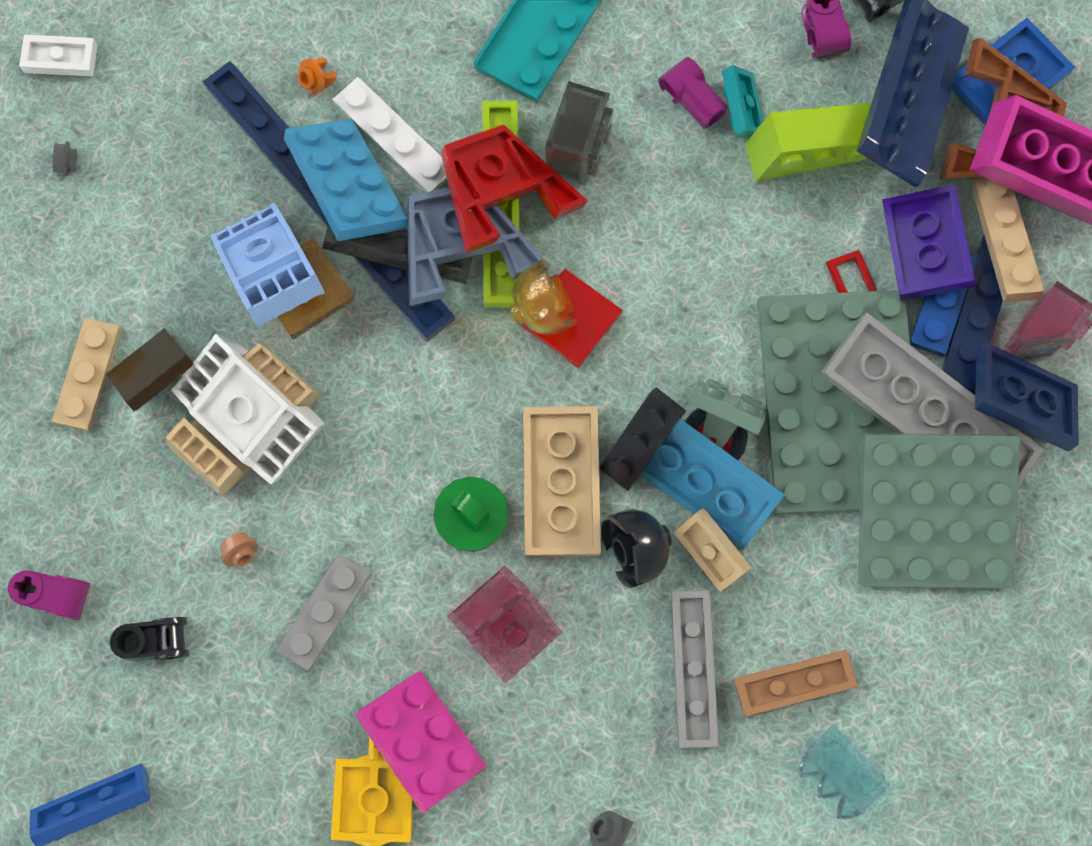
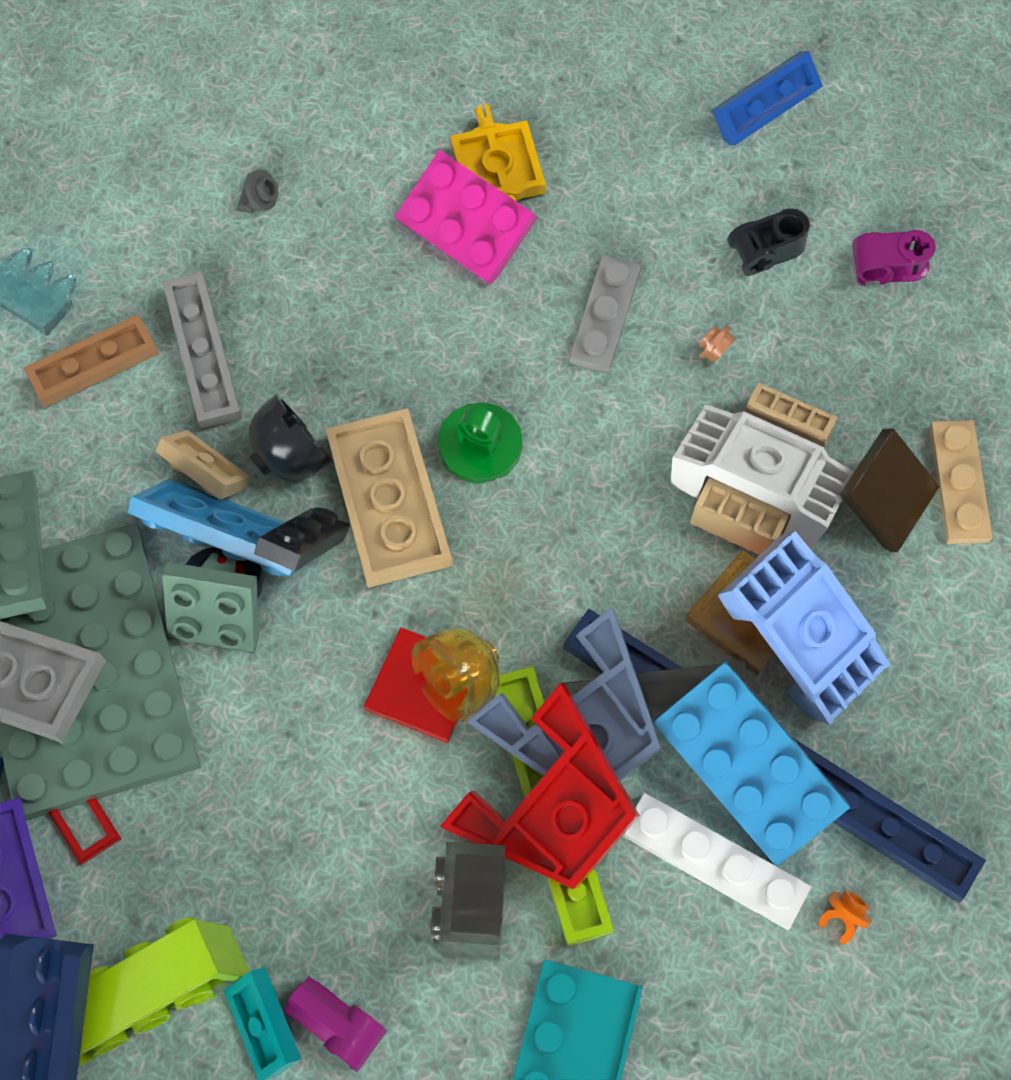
camera: 165 degrees right, 10 degrees down
(505, 623) = (414, 340): clear pink slope -> none

